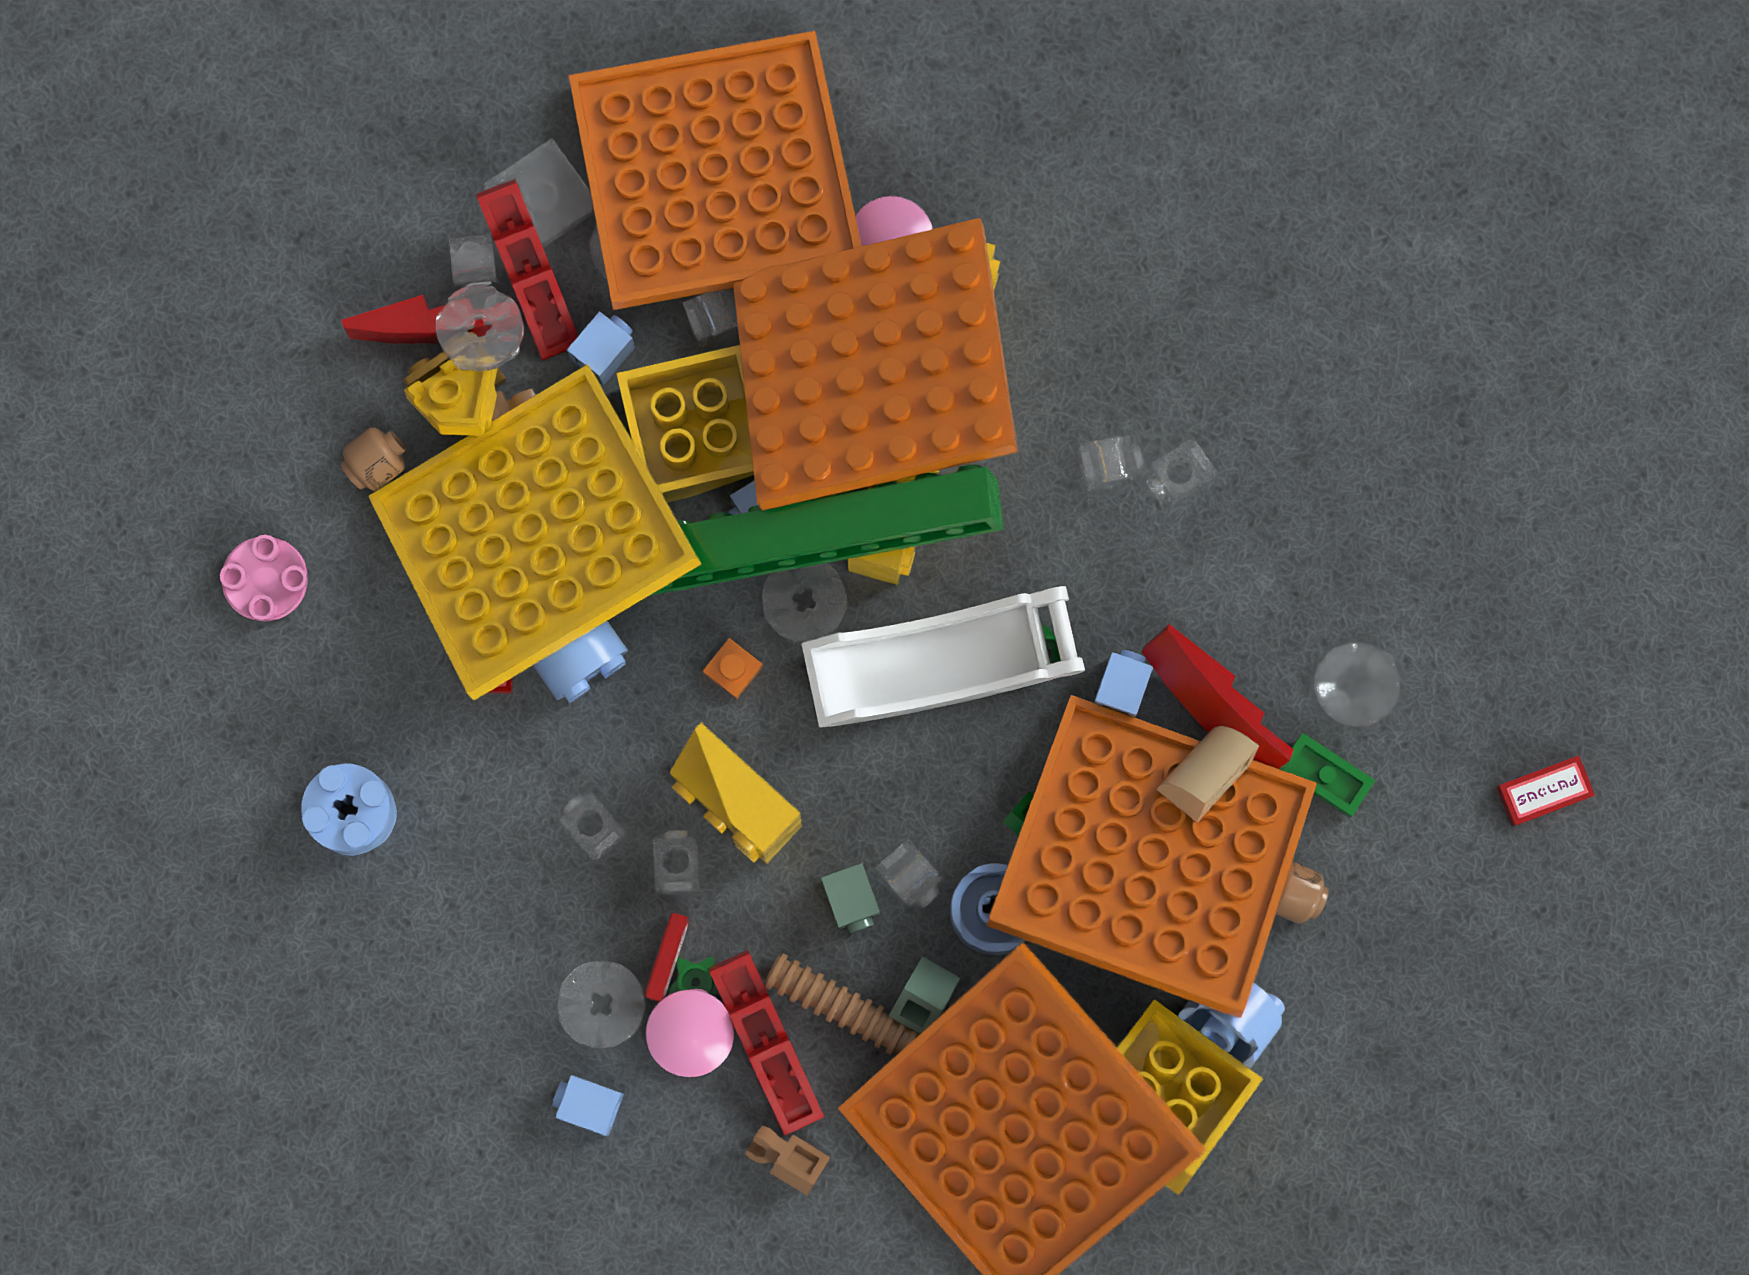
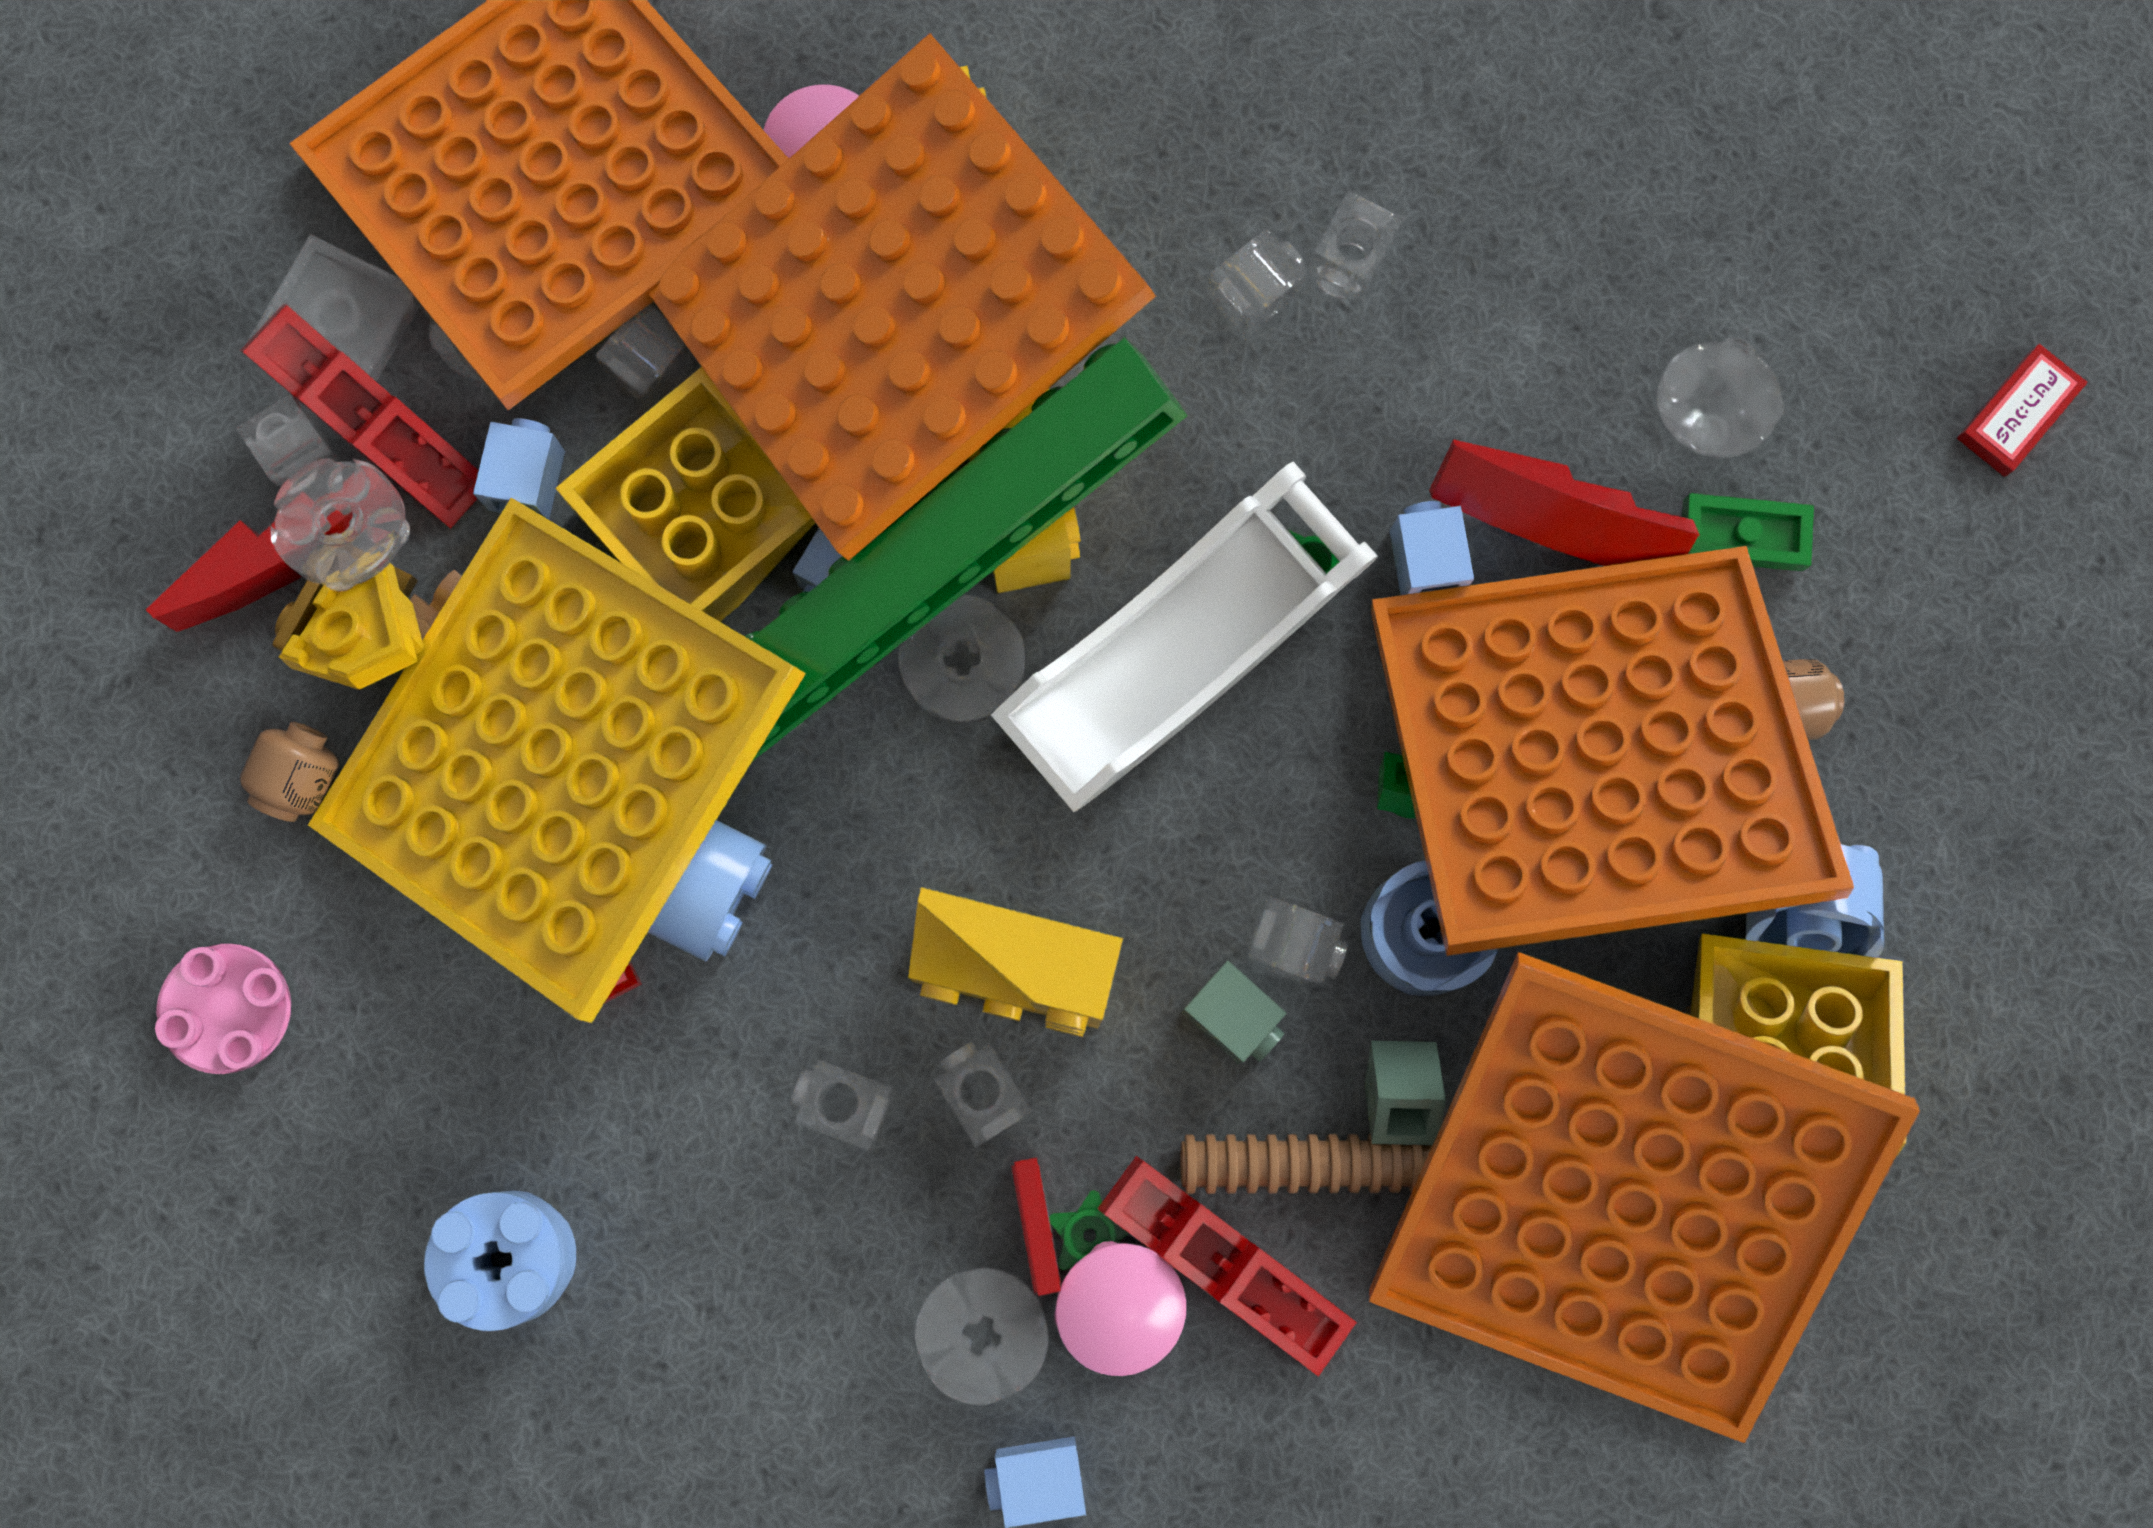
camera: 30 degrees left, 0 degrees up
(732, 668) = (916, 797): orange plate -> none
(793, 1161) = (1352, 1402): medium nougat plate -> none
(1208, 771) = (1609, 599): tan brick -> none

